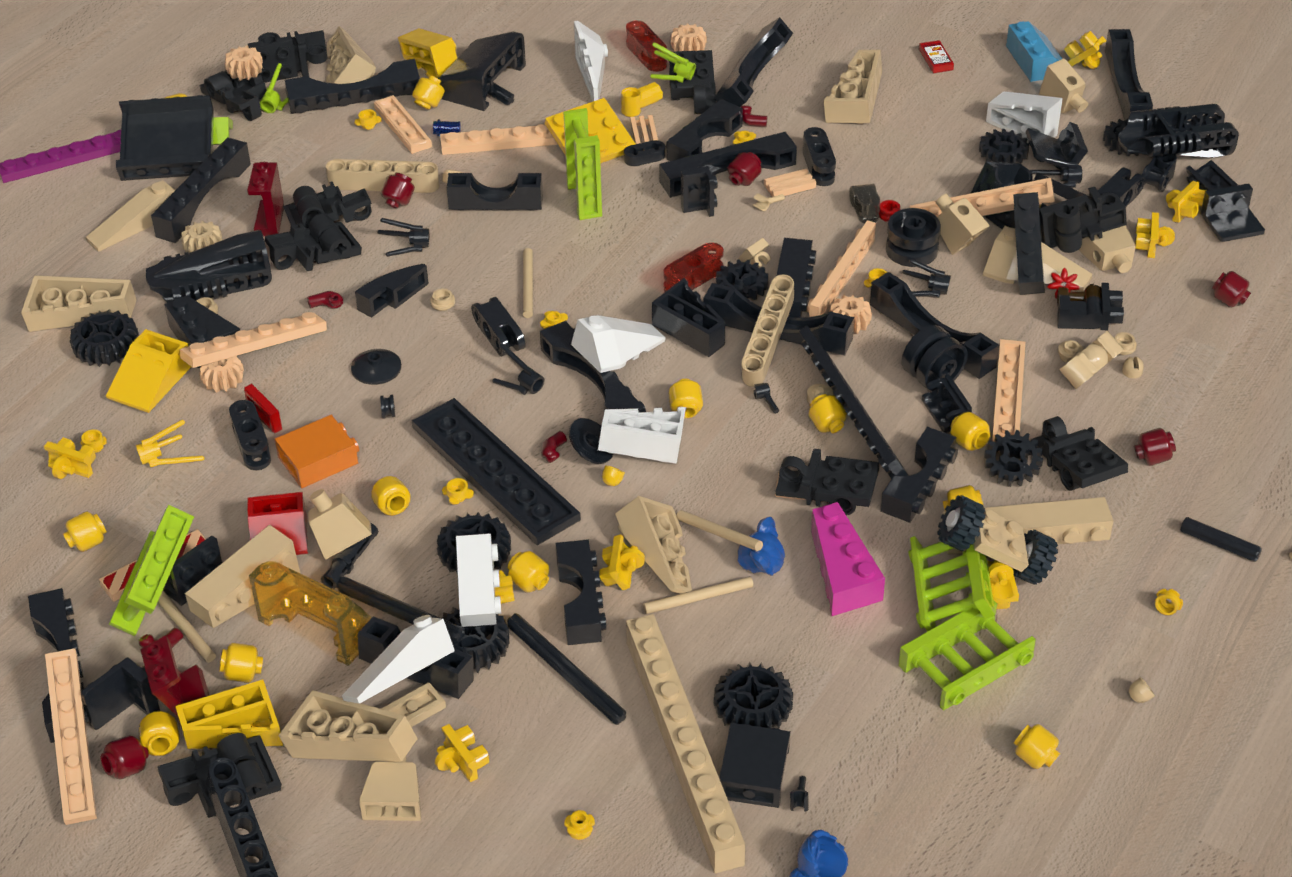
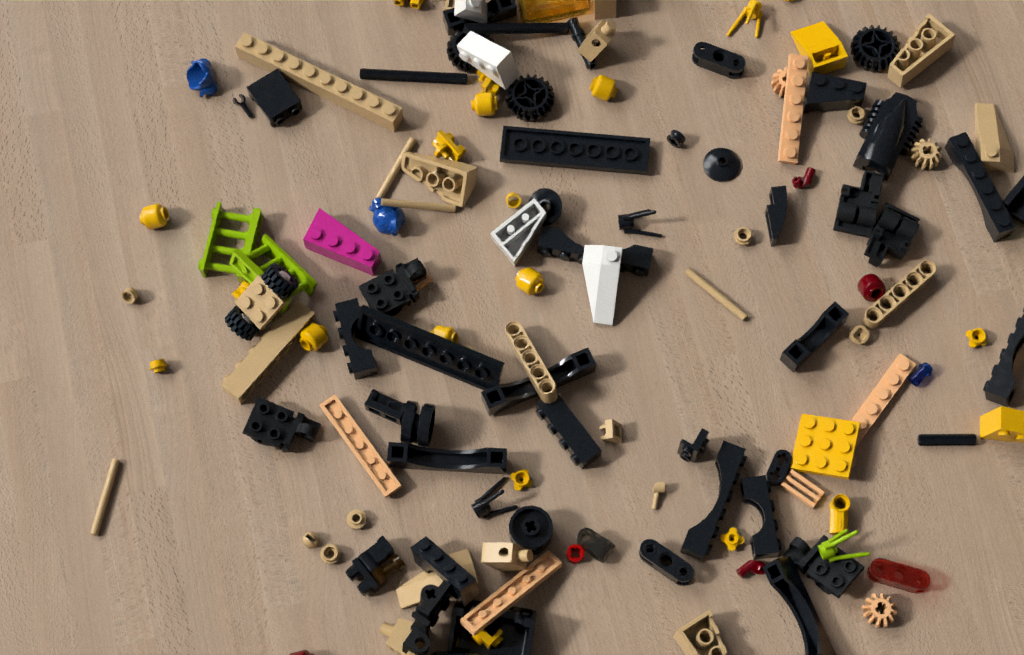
camera: 135 degrees right, 25 degrees up
(266, 183) = (923, 200): dark red panel -> none
(266, 410) = (734, 80): red tile -> none
(284, 513) = (633, 22): red slope -> none
(317, 451) = (673, 81): orange brick -> none
(402, 124) = (954, 356): light nougat tile -> none
(418, 236) = (815, 267): black plant -> none
(428, 92) = (967, 388): yellow head -> none
(457, 491) = (578, 119): yellow plate -> none
(479, 65) = (967, 443): black windscreen -> none
(498, 325) = (686, 241): black piece -> none
(550, 445) = (562, 186): dark red arm -> none
(553, 318) = (660, 276): yellow plate -> none
(581, 615) = (467, 129): black arch -> none
(581, 830) = (324, 15): yellow plate -> none
(583, 164) = (772, 381): lime fence -> none
(590, 56) = (917, 525): white wedge -> none
(688, 319) = (583, 333): black wedge -> none
(696, 266) = (631, 374): clear red piece -> none
(742, 687) = (308, 139): black gear -> none
(744, 169) = (697, 504): dark red head -> none
(744, 277) = (588, 405): black gear -> none
(761, 391) = (498, 328): black hand -> none
(790, 183) = (667, 509): light nougat tile -> none
(843, 271) = (543, 455): light nougat plate -> none
(855, 308) = (499, 433): light nougat gear -> none
(970, 431) = (354, 392): yellow head -> none
(1015, 467) = (314, 392): black gear -> none
(1064, 278) = (407, 575): red plant -> none
(1091, 359) = (334, 514): tan piece -> none
(1155, 446) = (245, 474): dark red head -> none
(1221, 539) = (162, 438): black axle -> none

